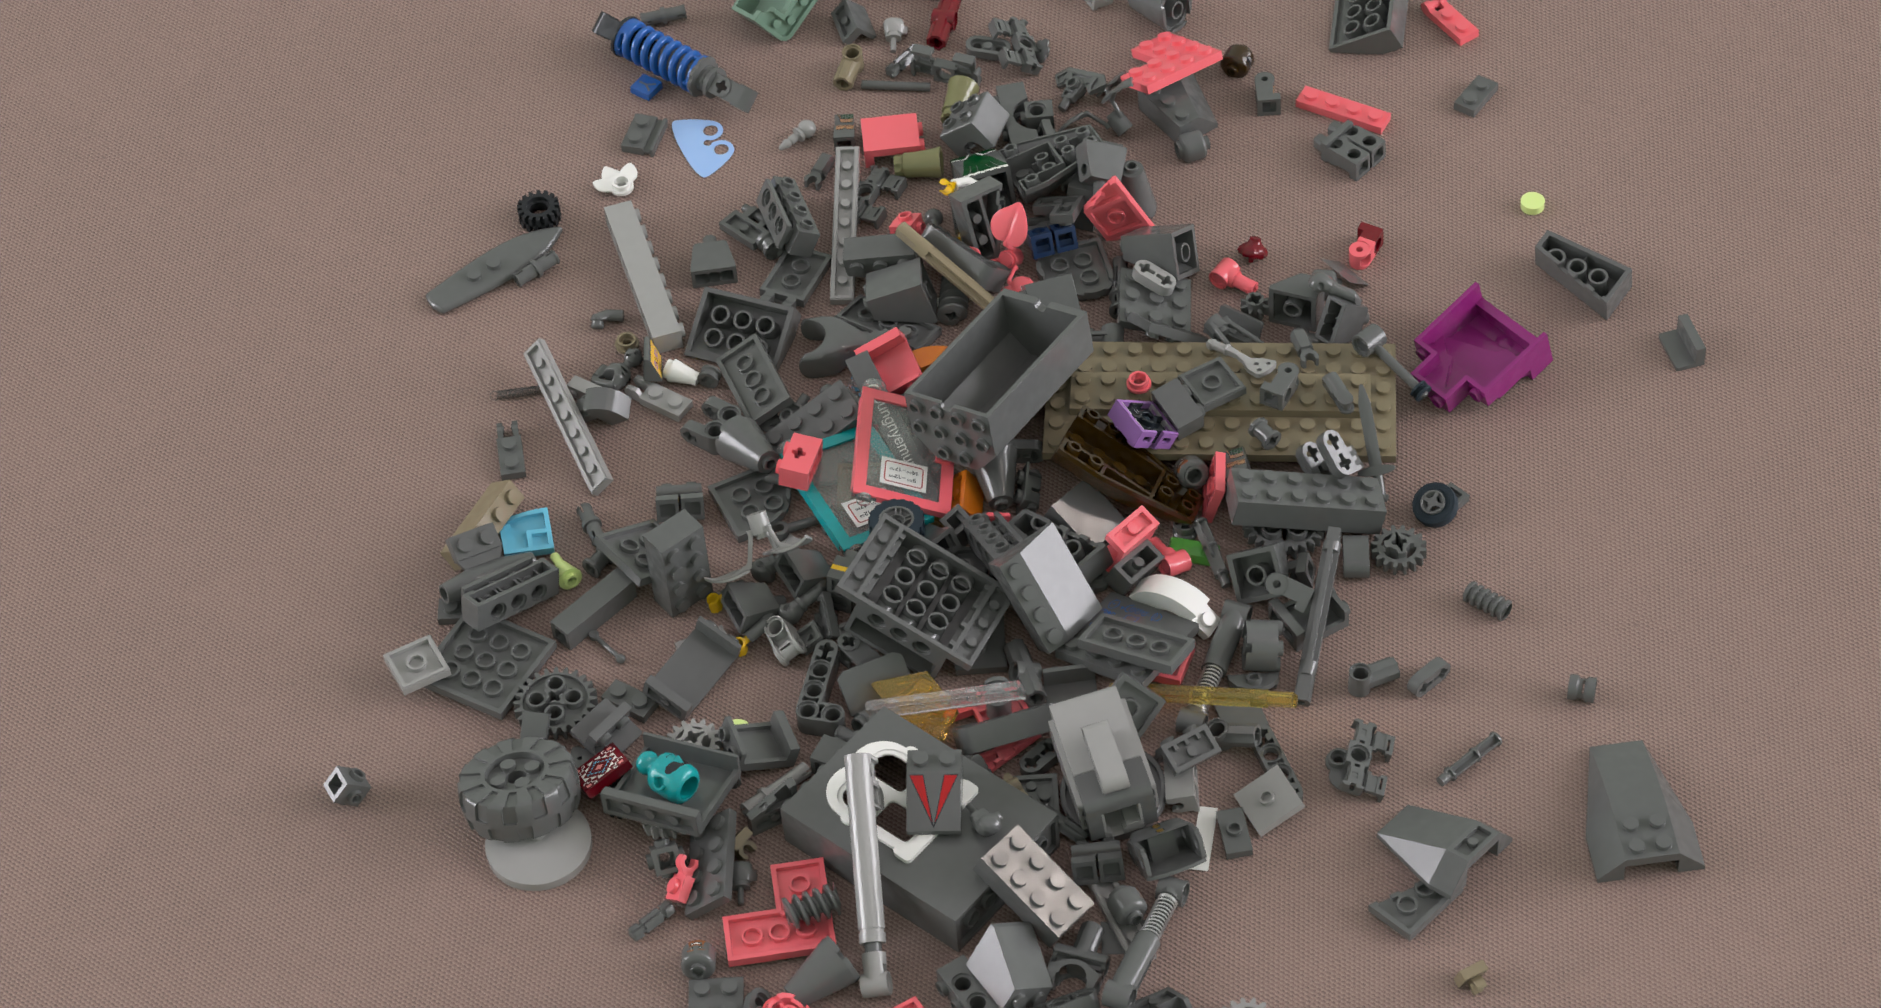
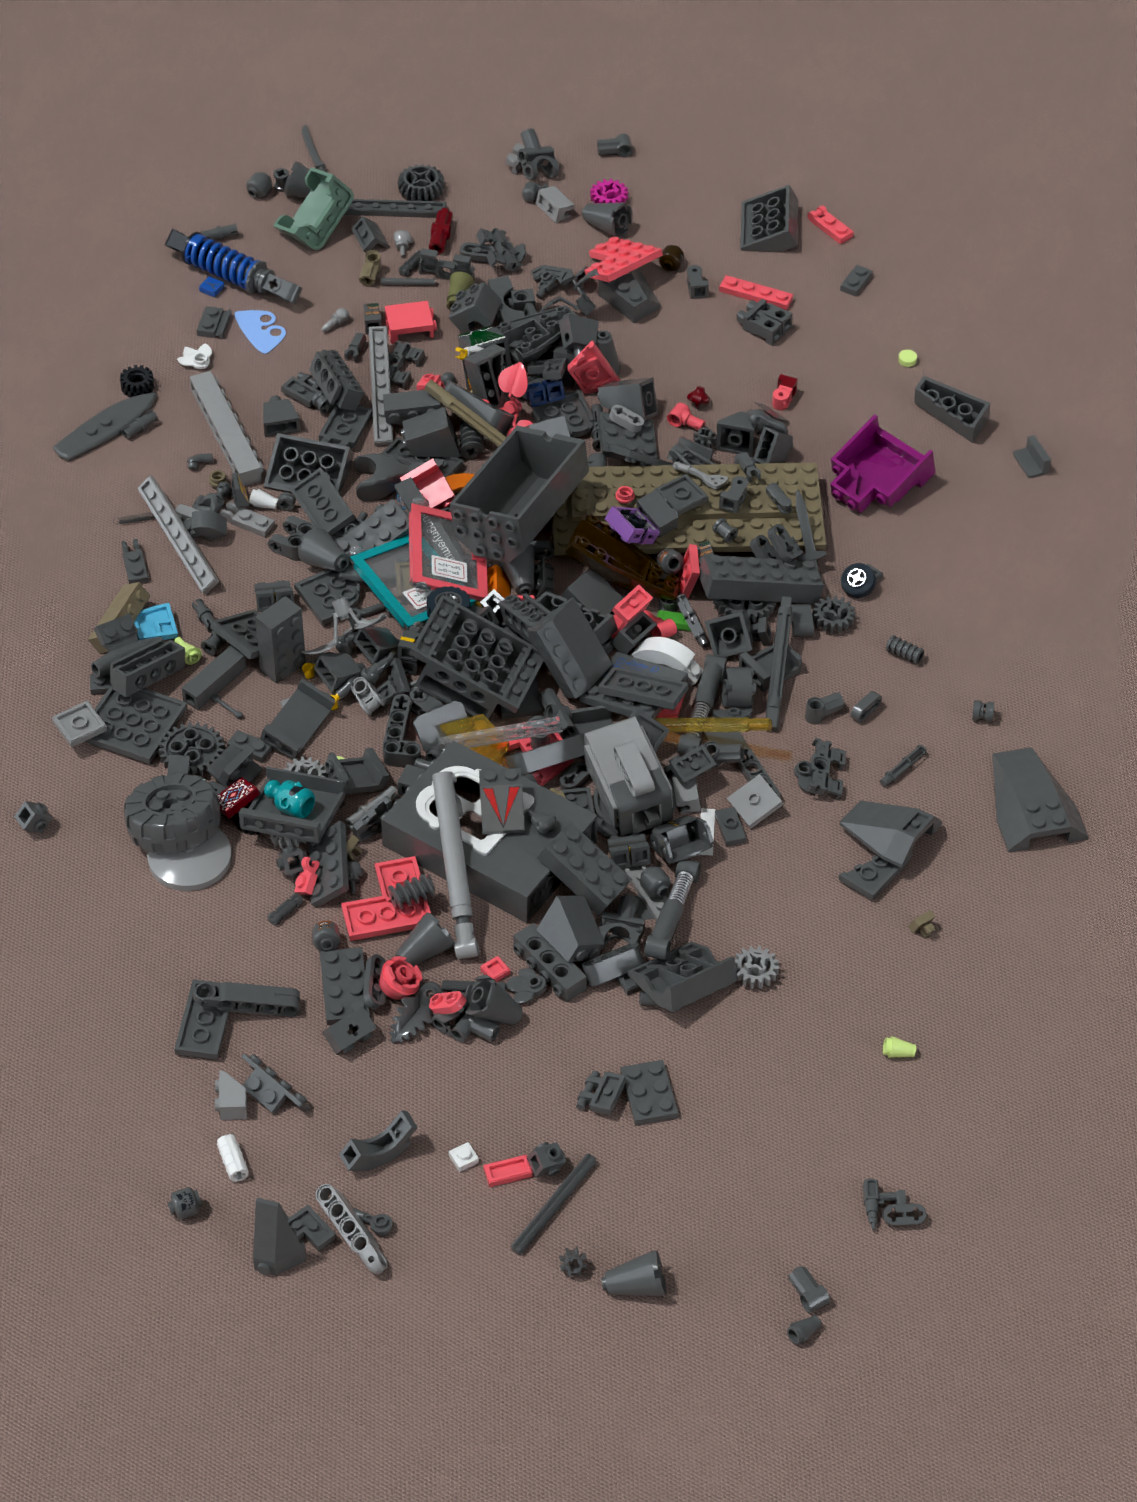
camera: 10 degrees left, 0 degrees up
(799, 461) = (367, 561): coral brick -> none
(920, 164) = (434, 339): olive plant -> none
(1192, 146) = (643, 321): dark grey head -> none
(1282, 585) = (755, 643): dark grey leg -> none
(1371, 341) = (799, 460): dark grey piece -> none

